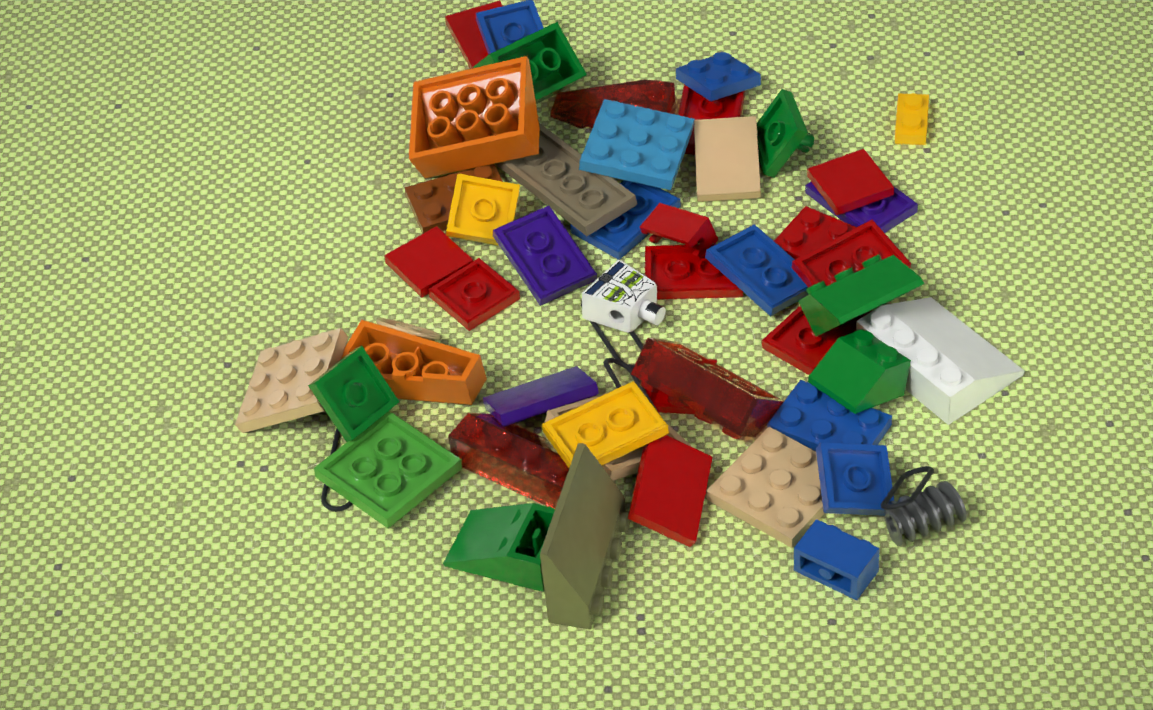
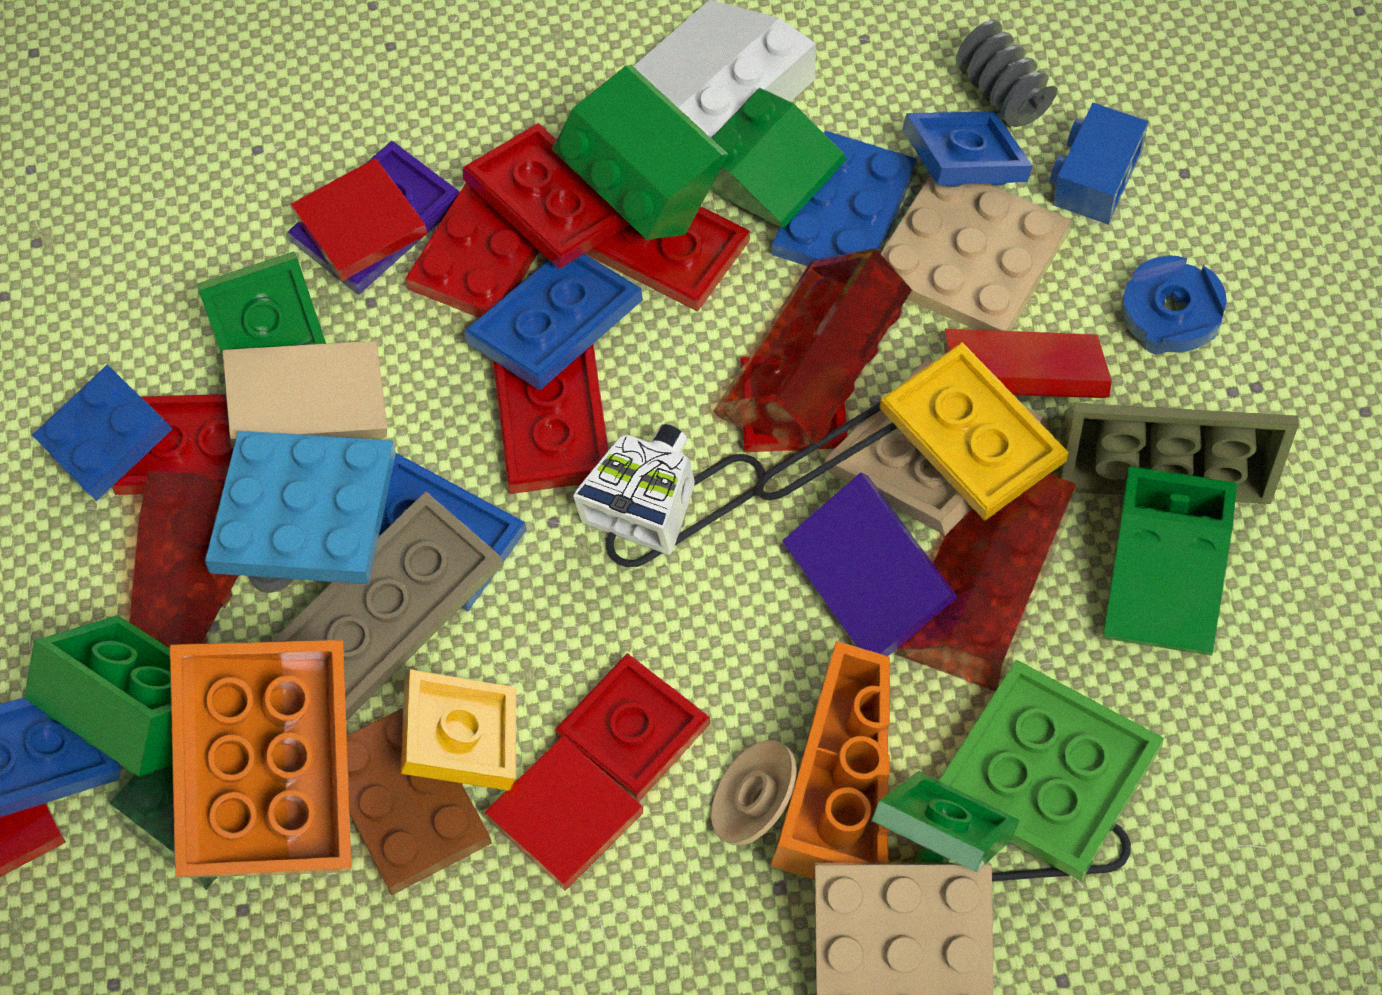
camera: 100 degrees left, 15 degrees up
(544, 255) = (544, 626): dark purple tile -> none
(680, 227) = (485, 430): red hinge -> none
(715, 602) = (1167, 329): none -> blue plate
(884, 505) = (981, 62): black piece -> none
(911, 119) = (193, 169): yellow plate -> none

